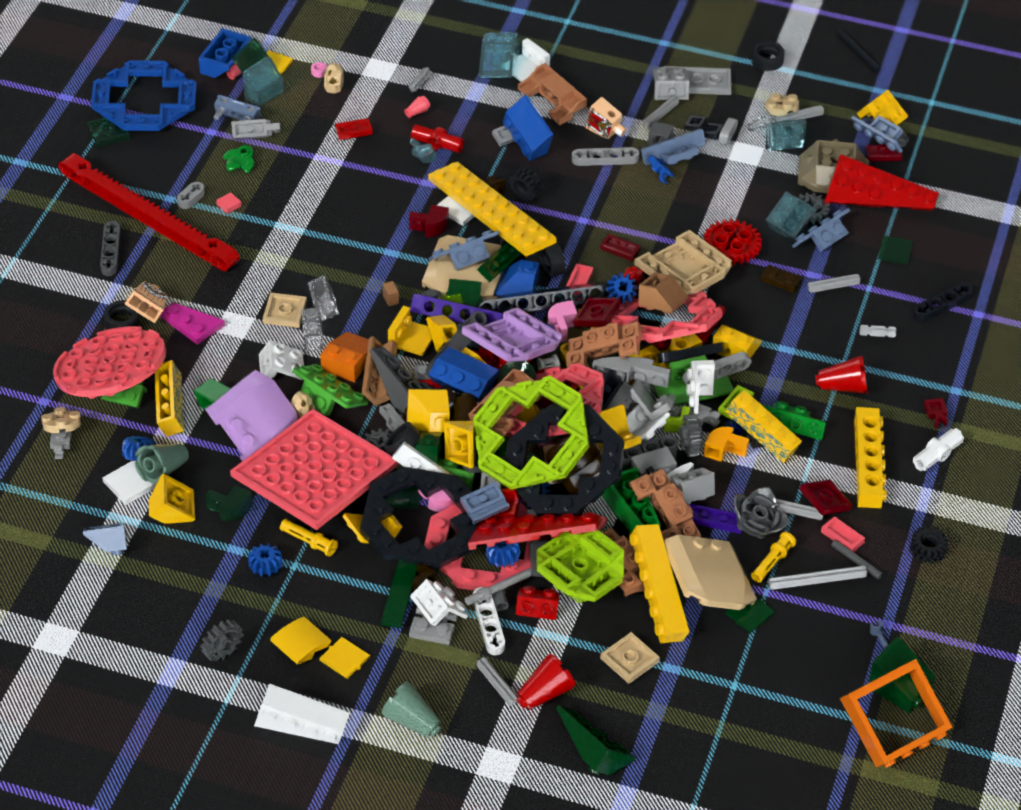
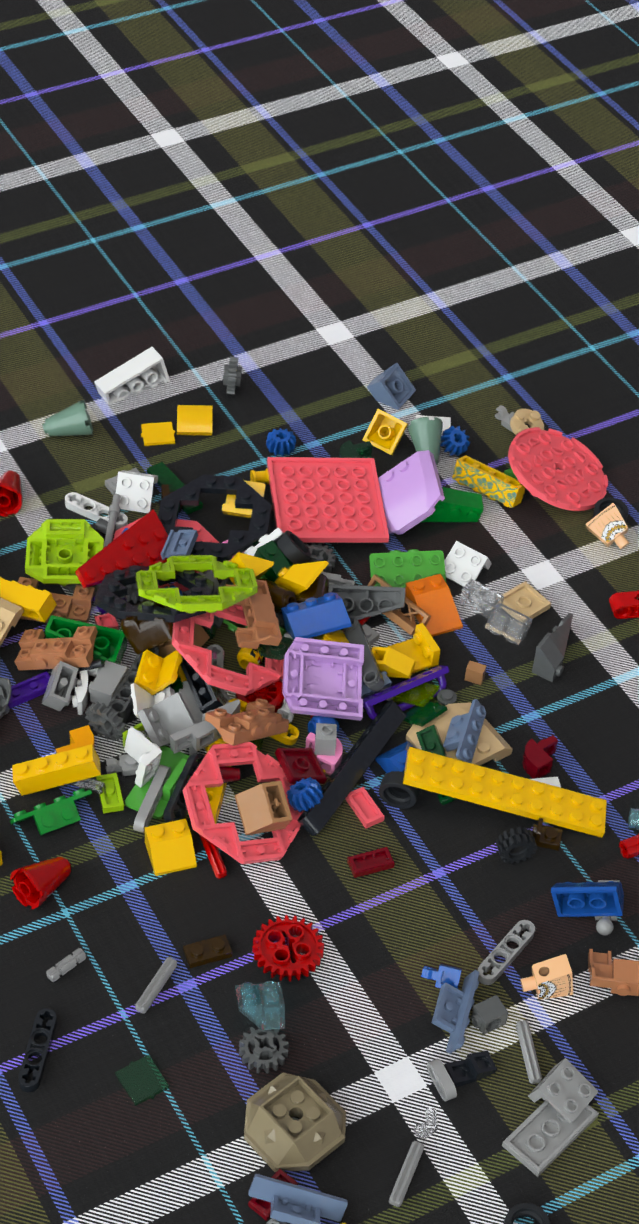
camera: 130 degrees right, 0 degrees up
(191, 323) = (567, 549): dark pink wing -> none
(302, 403) = (401, 540): tan rock -> none
(328, 262) = (551, 651): none -> dark grey wedge
(497, 681) = (47, 482): light grey axle -> none
(564, 306) = (325, 739): none -> light grey brick
(634, 273) = (324, 839): red plant -> none
(689, 261) = (291, 876): tan wedge -> none
(781, 105) = (439, 1151): tan plate -> none
(785, 134) = (384, 1116): clear light blue slope -> none
(826, 234) = (221, 1035): sand blue bracket -> none
(868, 186) = (231, 1106): red wing -> none

